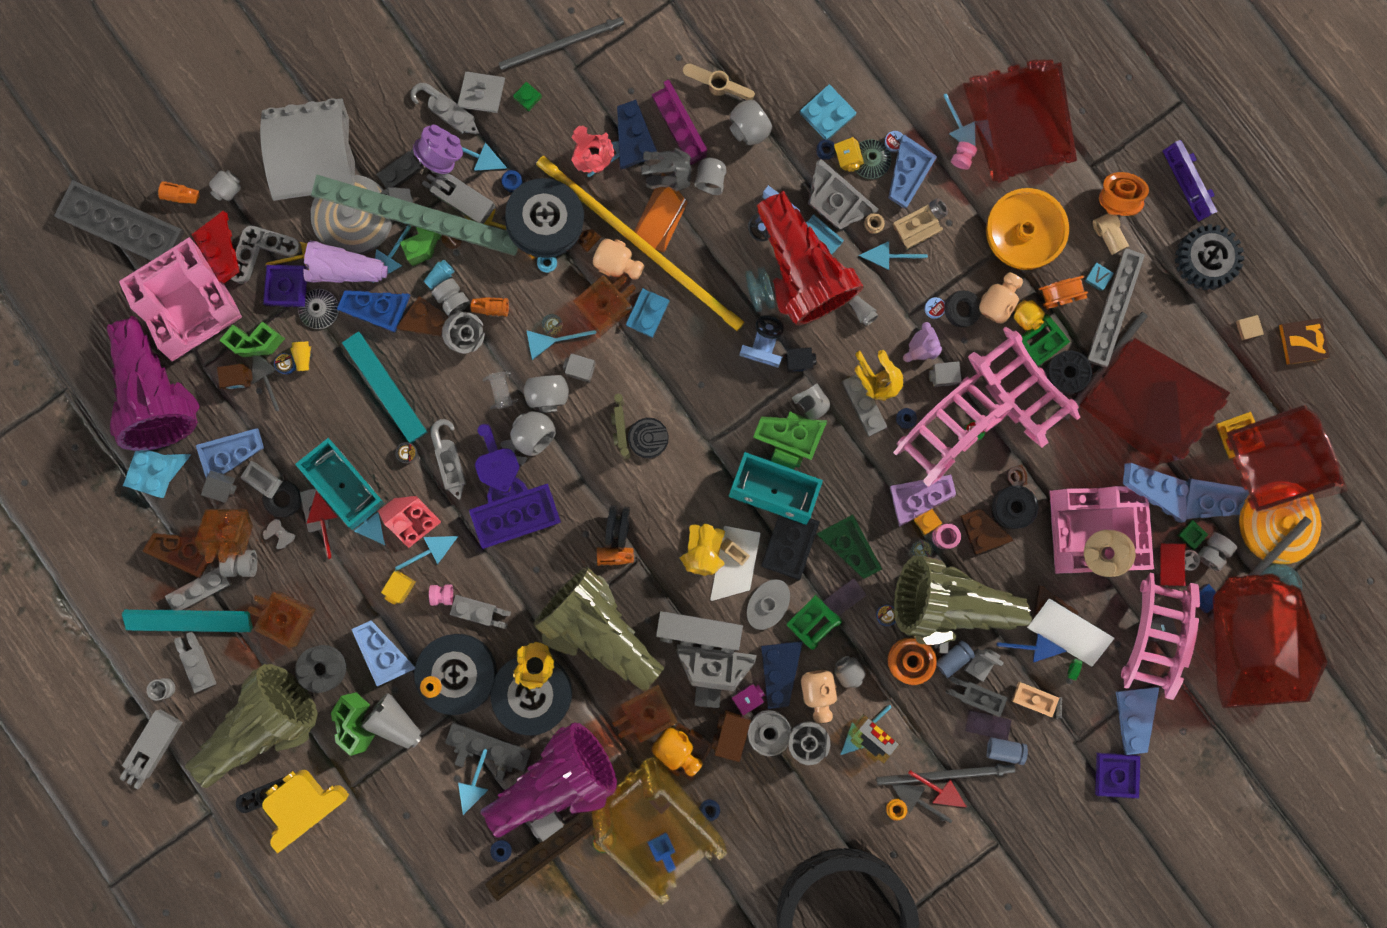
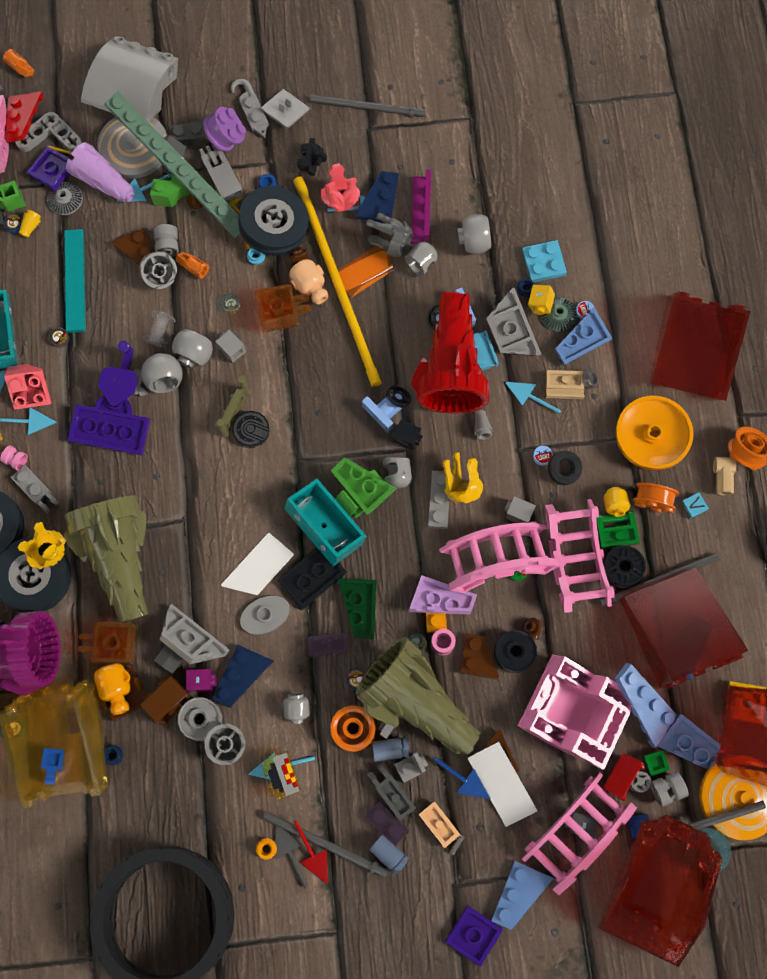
camera: 35 degrees right, 10 degrees down
(224, 185) = (54, 75): light grey head -> none
(376, 308) = (106, 220): blue wing -> none
(440, 273) = (172, 217): medium azure cone -> none
(448, 460) = (86, 360): light grey plate -> none
(487, 159) = (258, 159): medium azure piece -> none
(527, 96) = (318, 129): green plate -> none
(539, 343) = (213, 312): medium azure piece -> none
(543, 128) = (313, 157): none -> black hips
(614, 556) = (165, 504): orange hinge -> none
(617, 527) = (181, 481): black wheel -> none
(647, 313) = (310, 334): dark azure plate -> none
(699, 631) = (193, 600): light grey brick -> none
(703, 550) = (232, 544): yellow piece -> none
(707, 77) = (465, 187): tan piece -> none
(734, 551) = (263, 557): tan piece -> none
(760, 289) = (406, 361): clear light blue wheel -> none
(809, 617) = (288, 643): green plate -> none
(819, 693) = (260, 709): light nougat piece -> none
(878, 219) = (531, 358): tan plate -> none
(900, 421) = (471, 524): dark blue plate -> none
(923, 345) = (515, 478): lavender rock -> none
(964, 133) = (645, 335): medium azure piece -> none
(964, 154) = (635, 349): bright pink wheel -> none
(1001, 299) = (600, 477): light nougat piece -> none
(1074, 669) = (488, 818): green tile -> none
(1095, 553) = (560, 720): tan wheel -> none
(1115, 308) = (693, 536): light grey plate -> none

